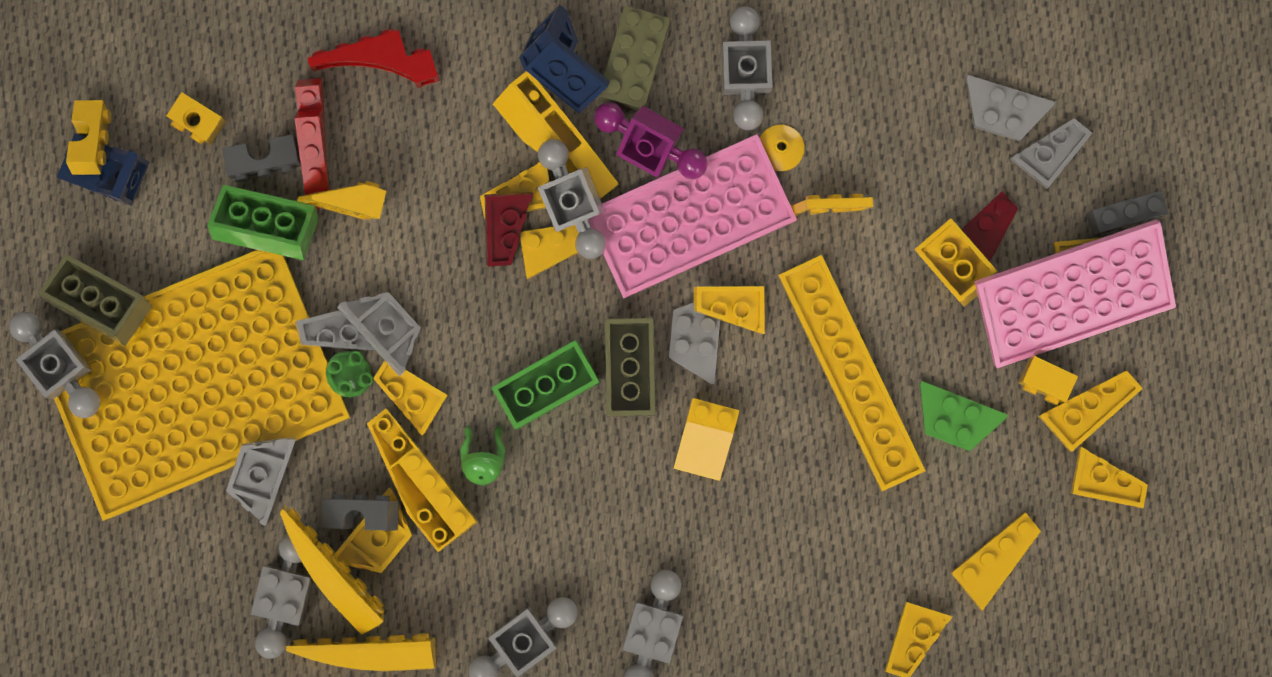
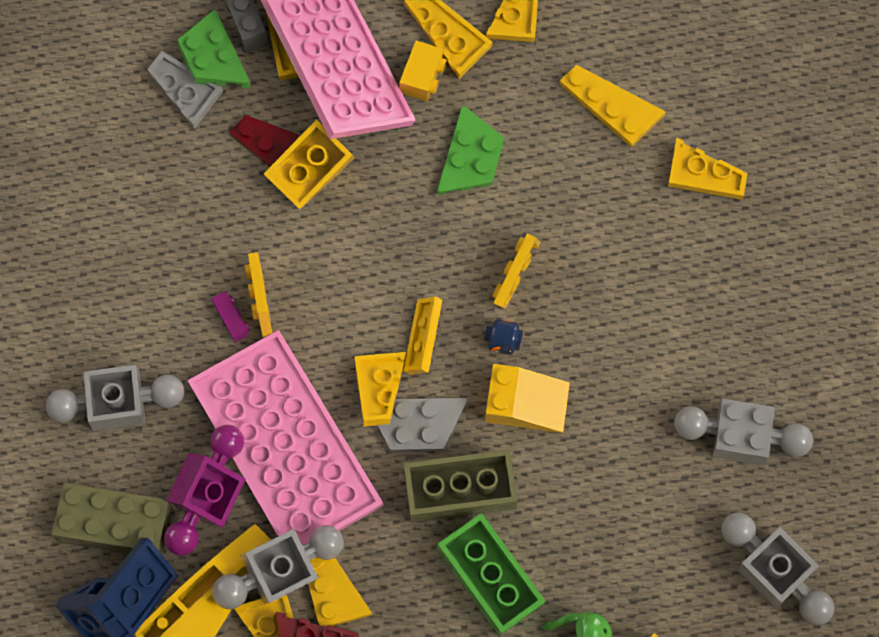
camera: 90 degrees left, 15 degrees down
(768, 425) = (503, 337): none -> dark blue head
(778, 351) = (422, 335): none -> yellow plate
(794, 151) = (185, 359): yellow dish -> none
(816, 178) = (231, 316): none -> magenta piece
(831, 441) = (504, 291): none -> yellow wing
(851, 373) = (435, 261): yellow plate -> none
(1004, 109) = (142, 138): light grey wing -> none
(1084, 180) = (211, 54): none -> bright green wing

